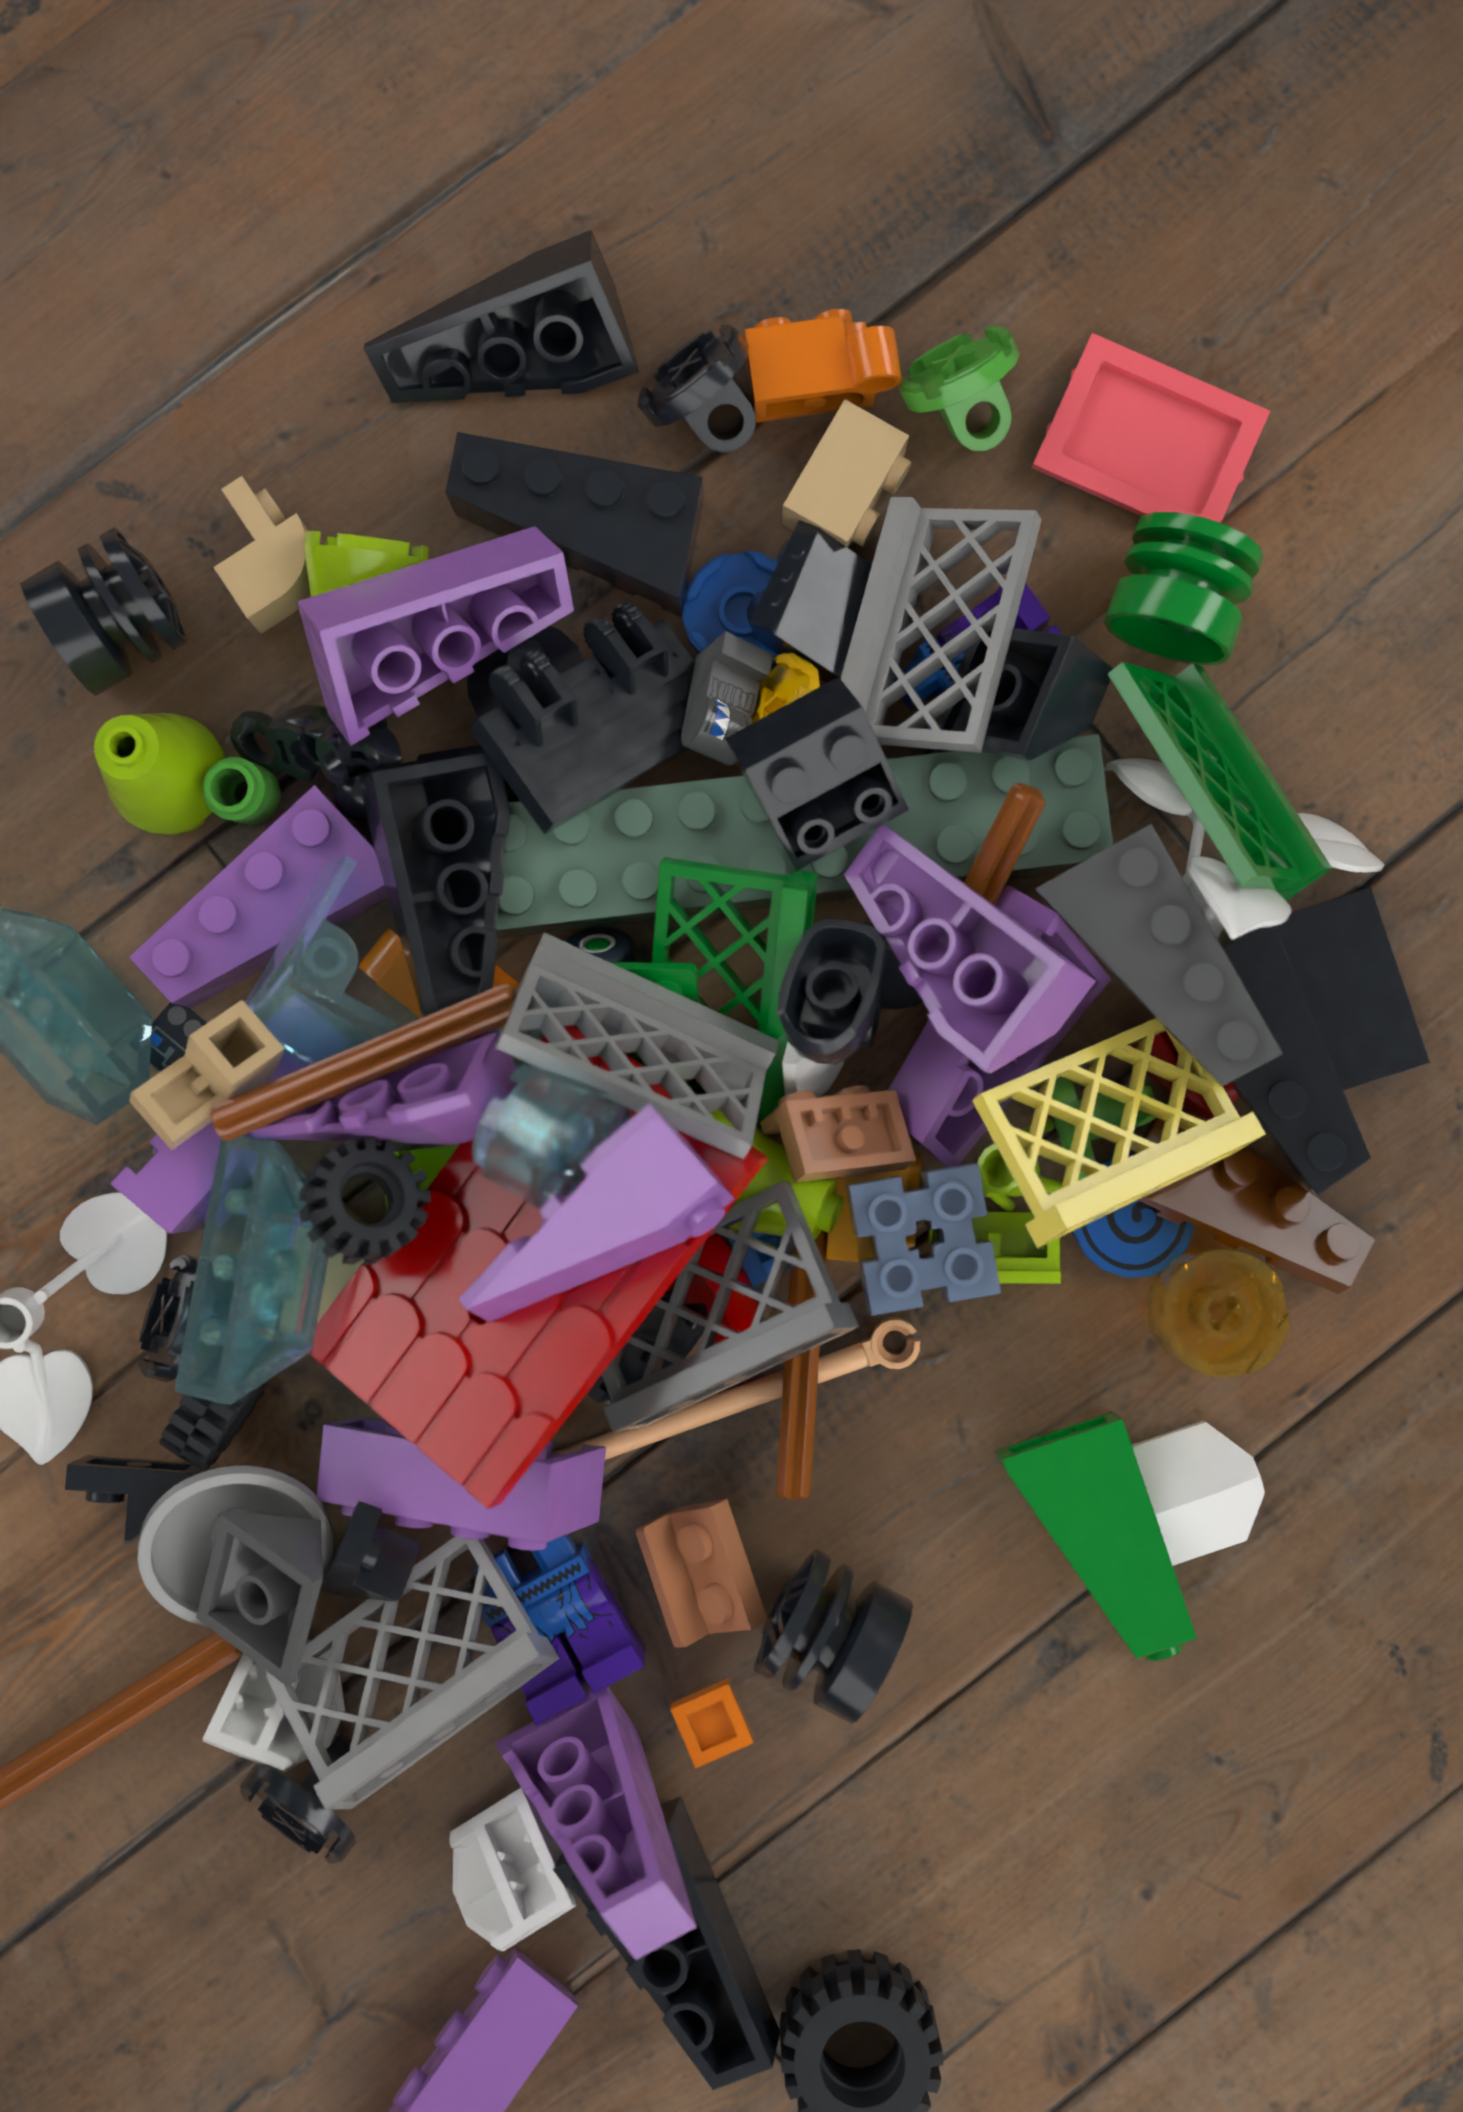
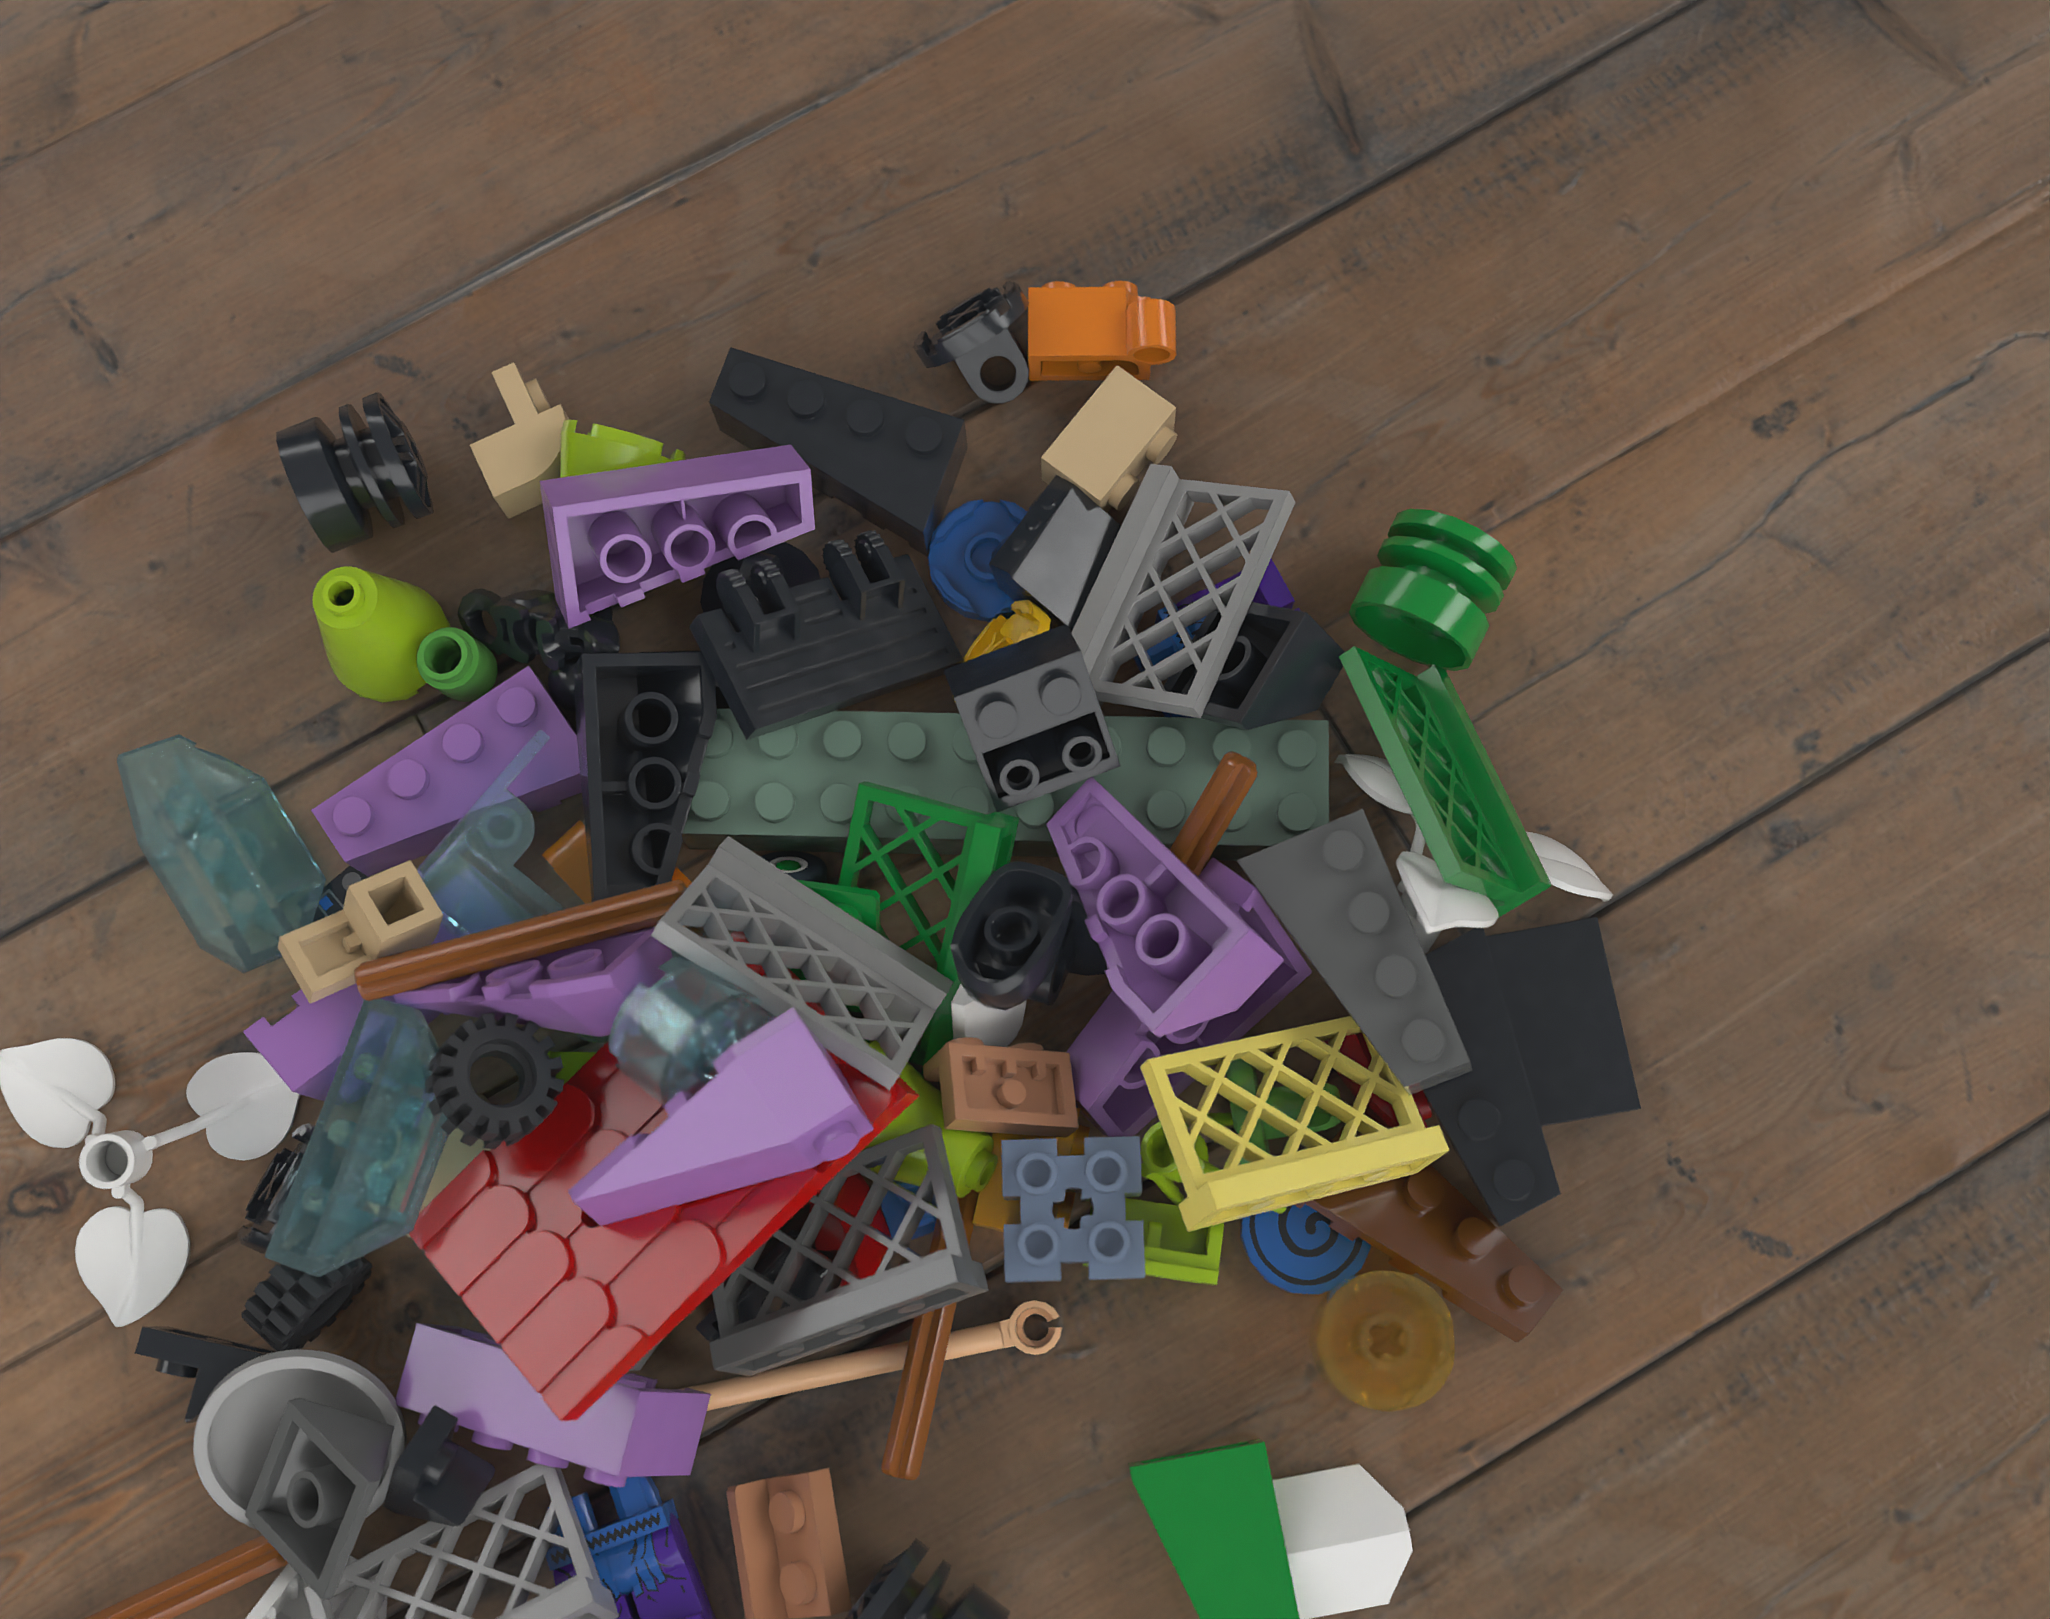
camera: 10 degrees right, 10 degrees down
(519, 330) = (817, 263): black wedge -> none
(723, 695) = (954, 631): dark grey leg -> none
(958, 377) = (1236, 360): bright green tile -> none
(1149, 435) = (1419, 439): coral piece -> none

